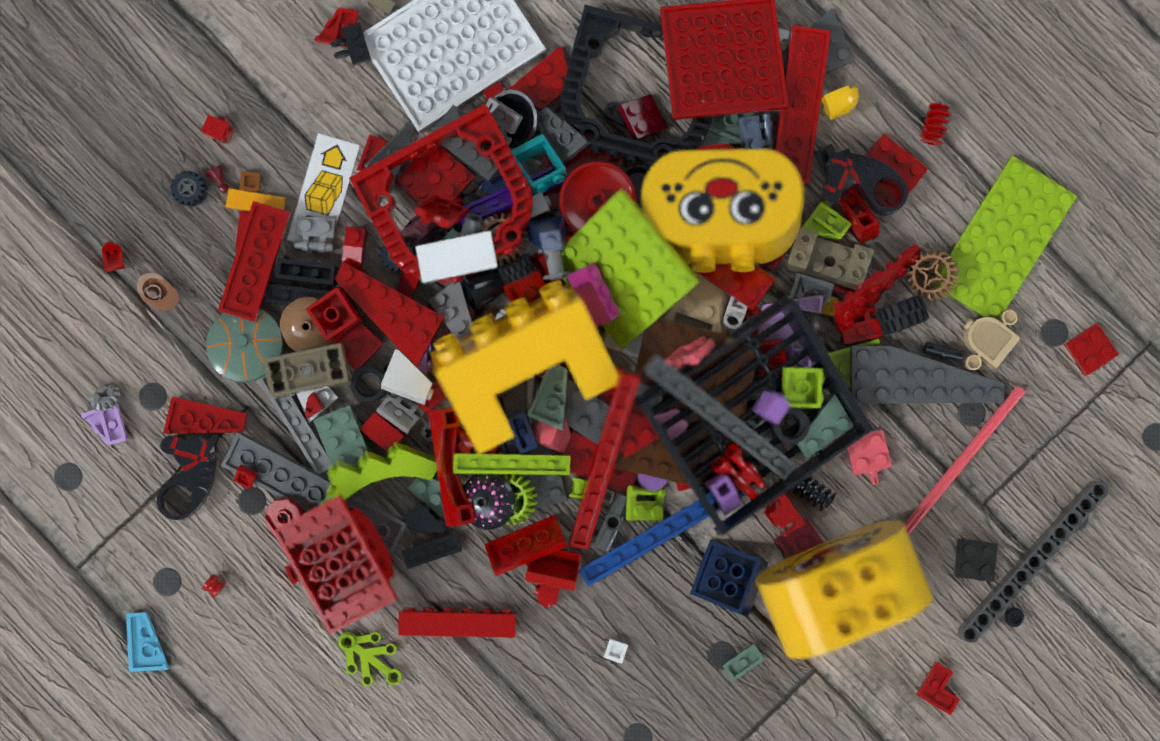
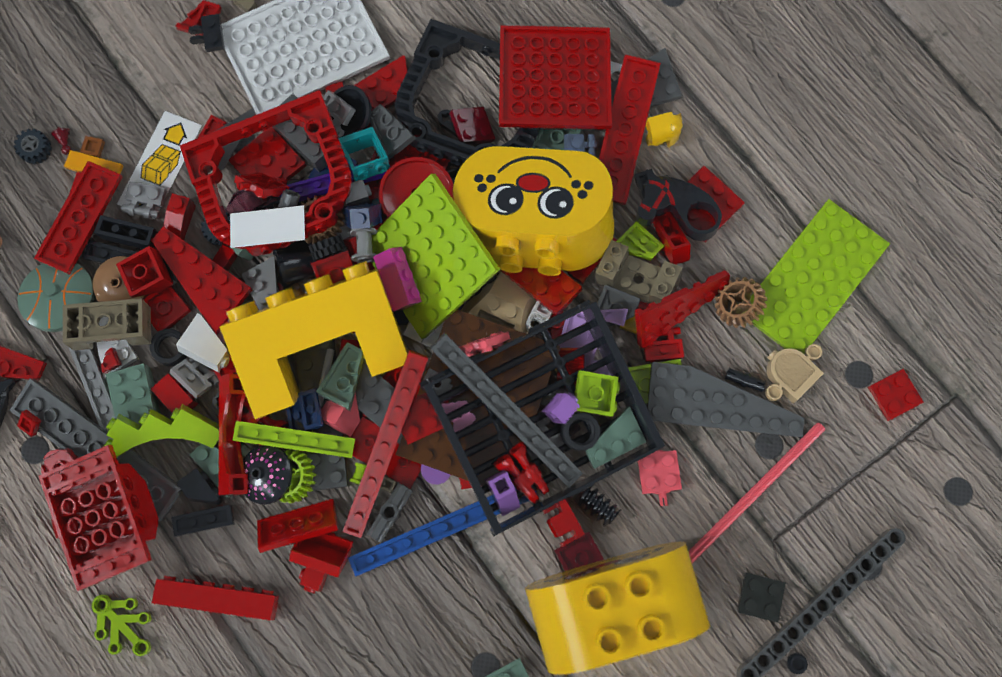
camera: 10 degrees right, 10 degrees down
(217, 129) = (70, 95): red brick -> none
(615, 650) = (374, 648): white plate -> none
(644, 509) = (424, 503): lime plate -> none
(728, 578) = (500, 585): dark blue slope -> none
(902, 315) = (705, 336): black tyre -> none
(934, 124) = (754, 161): red piece -> none

